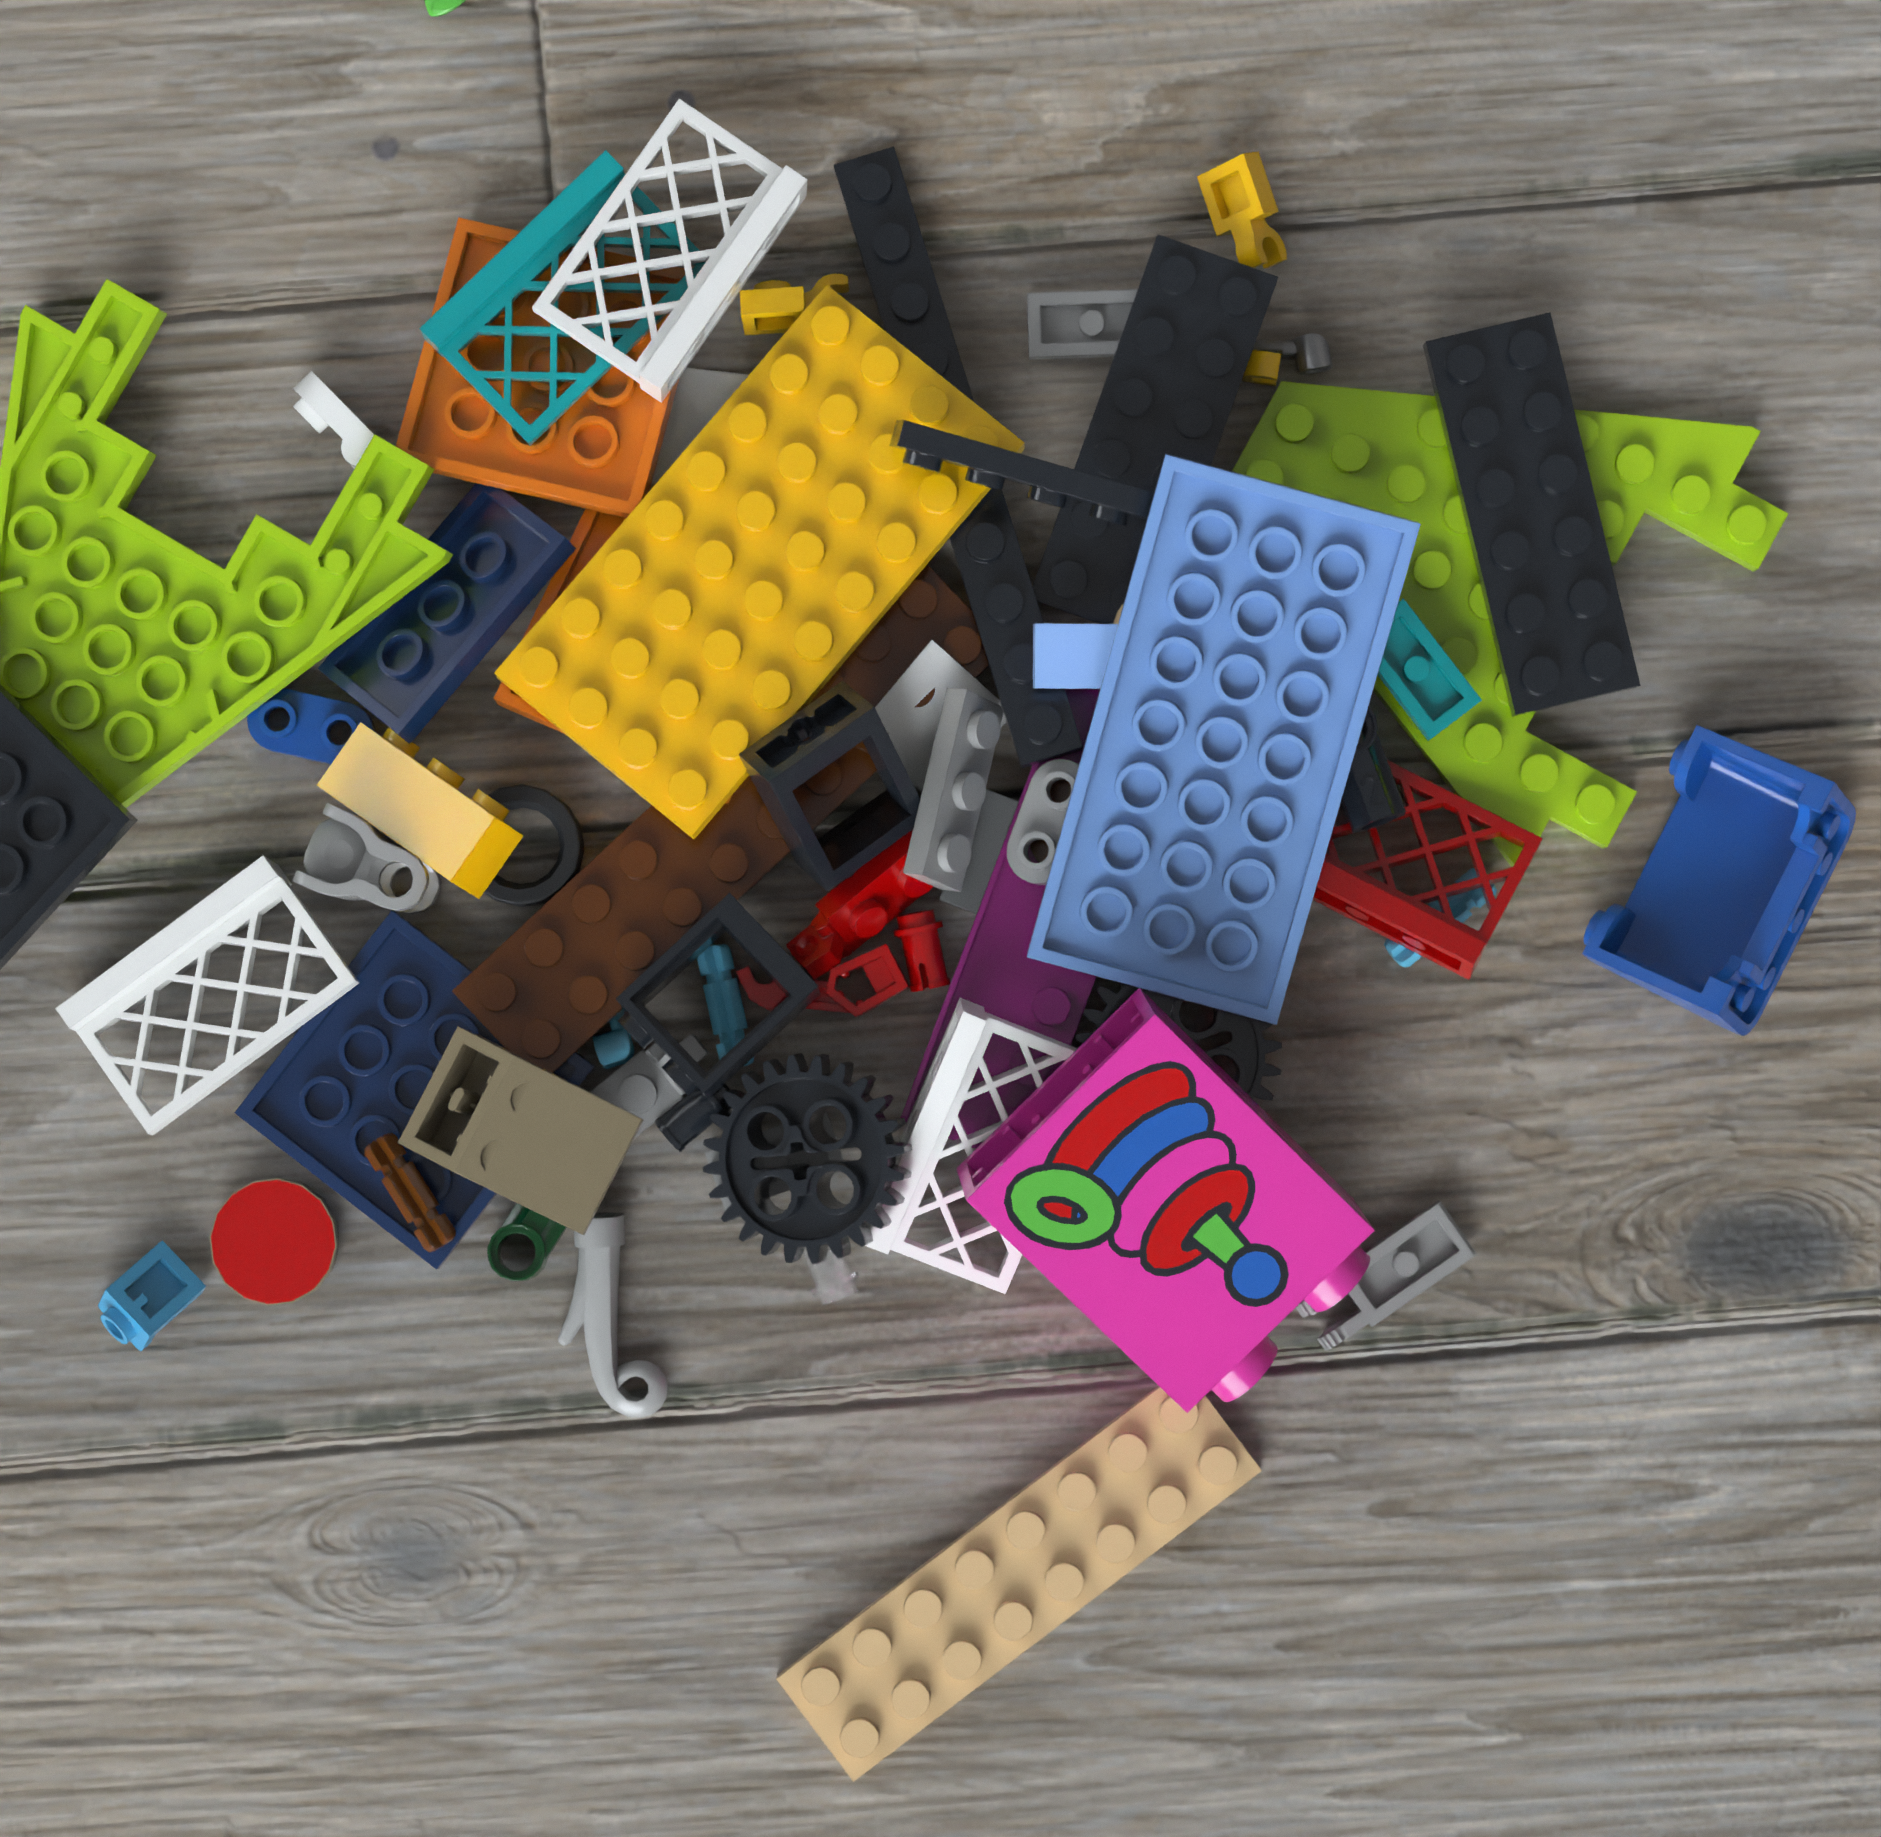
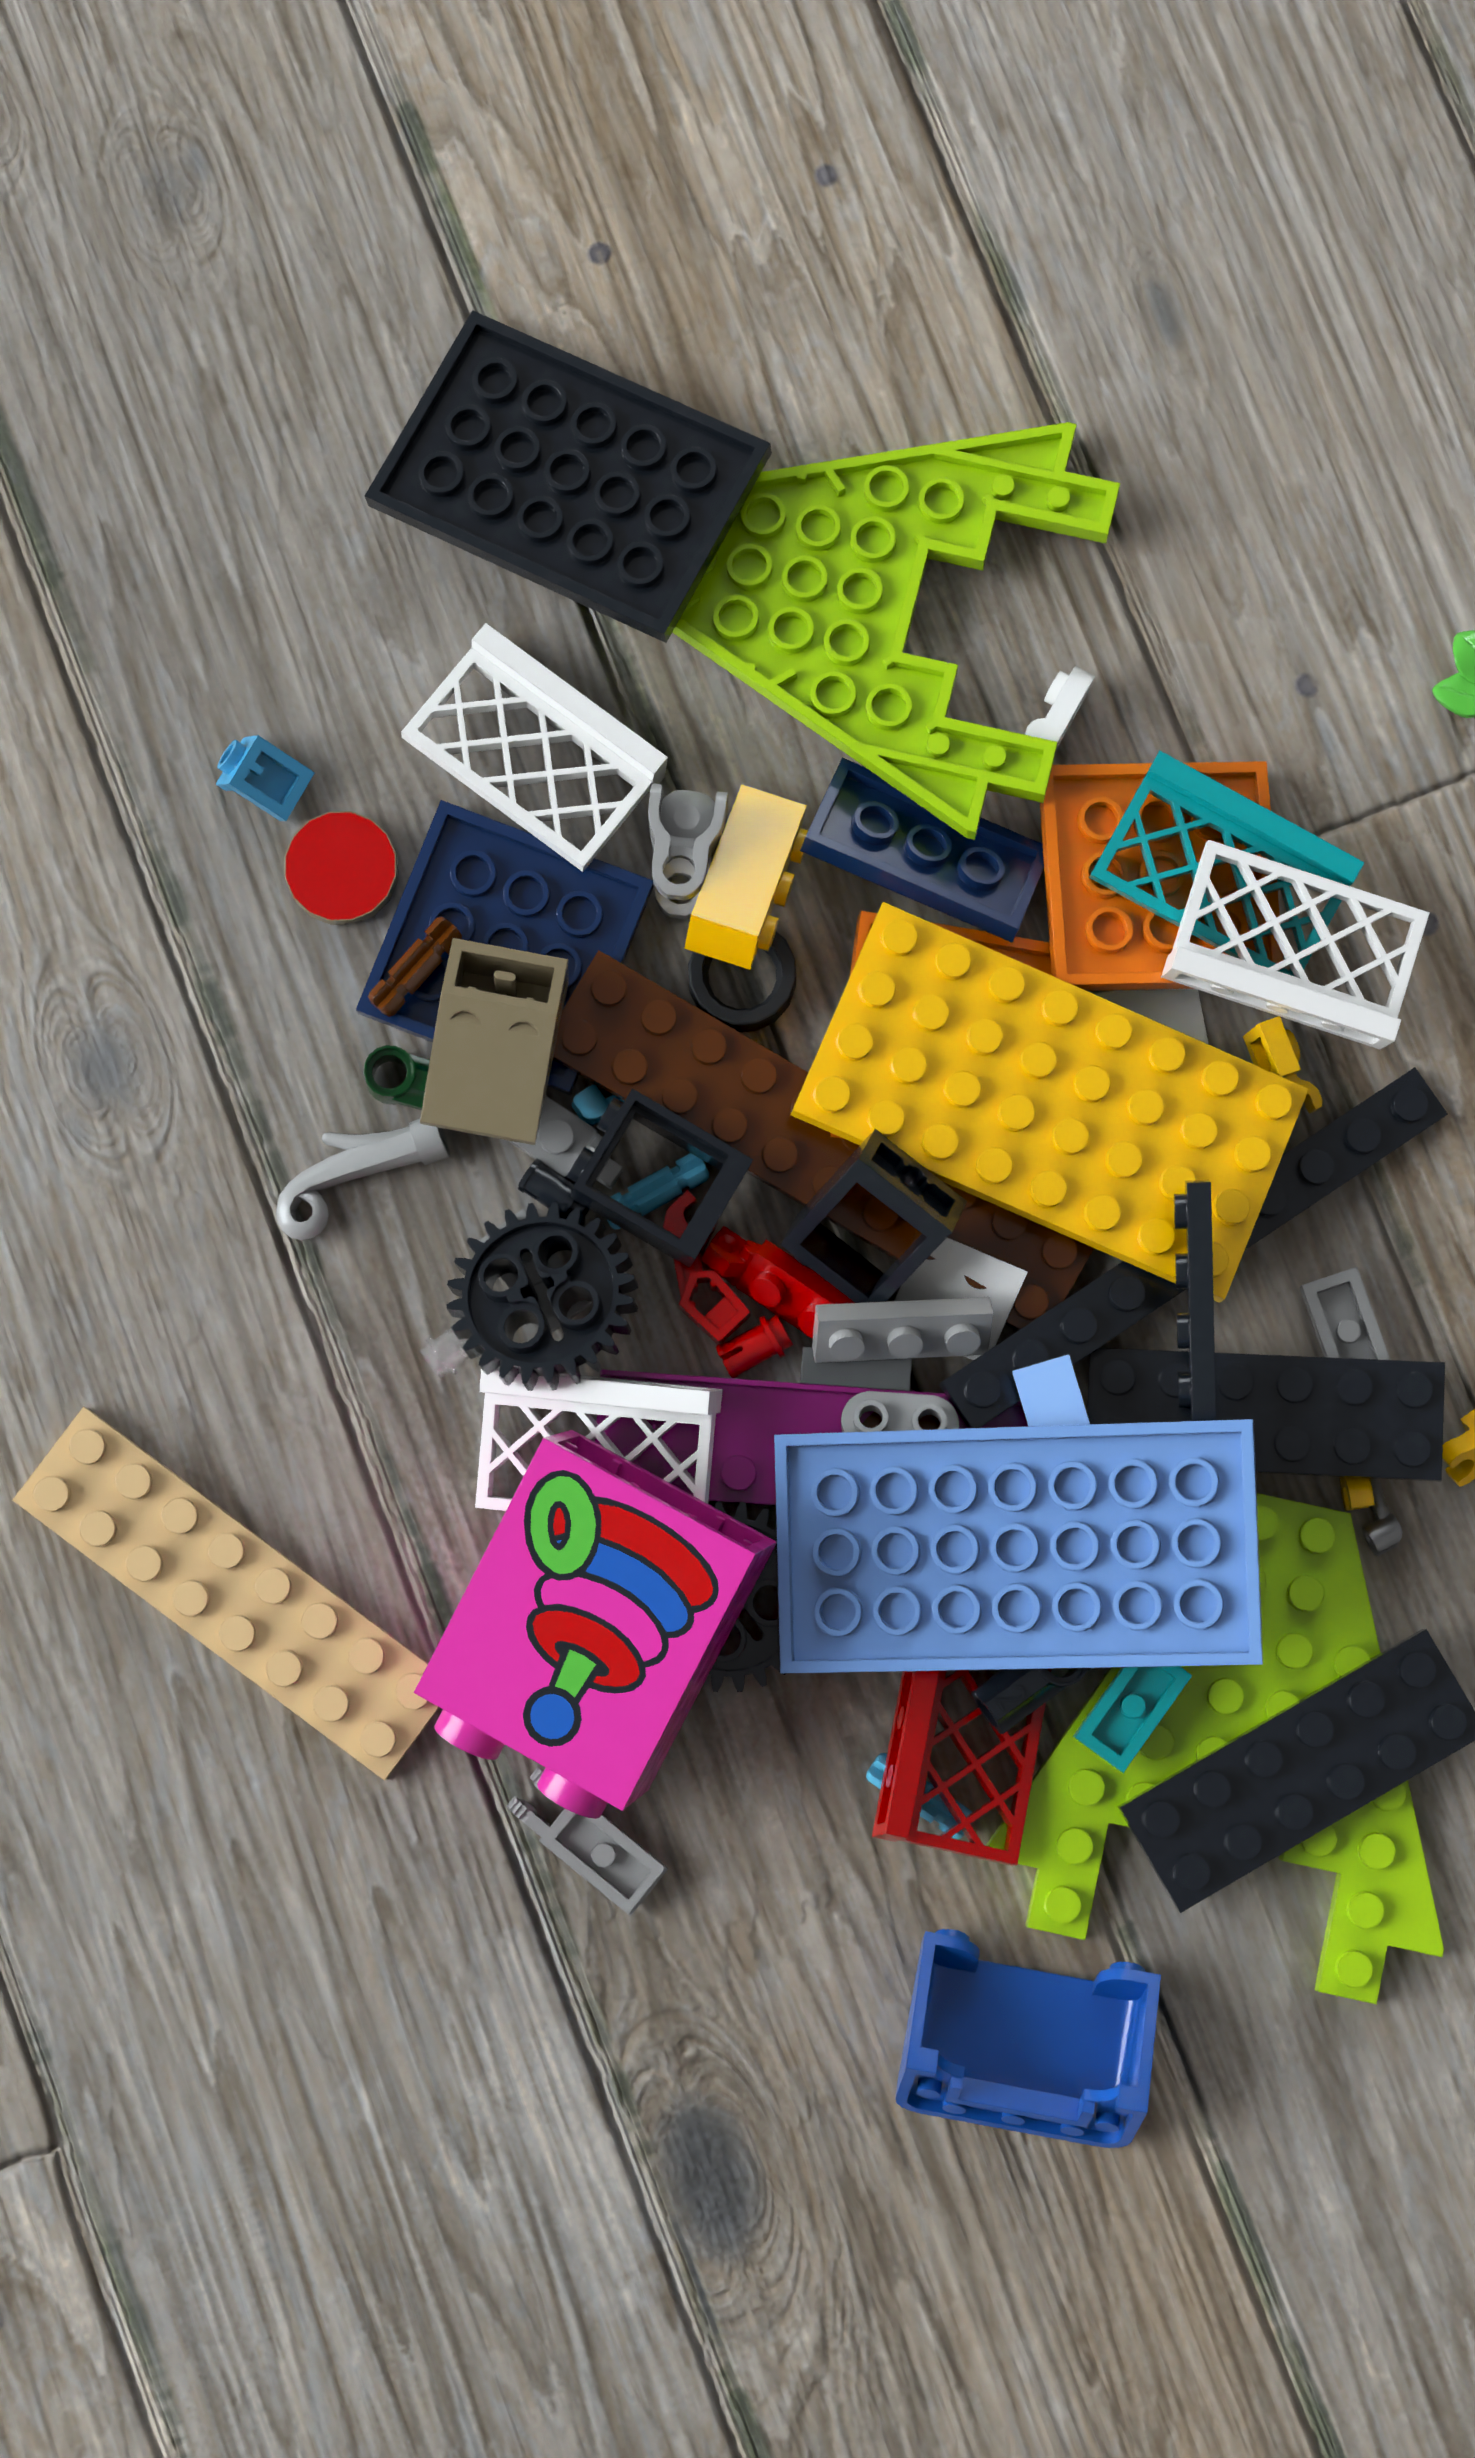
camera: 75 degrees right, 5 degrees down
(308, 727) = (791, 765): blue plate -> none

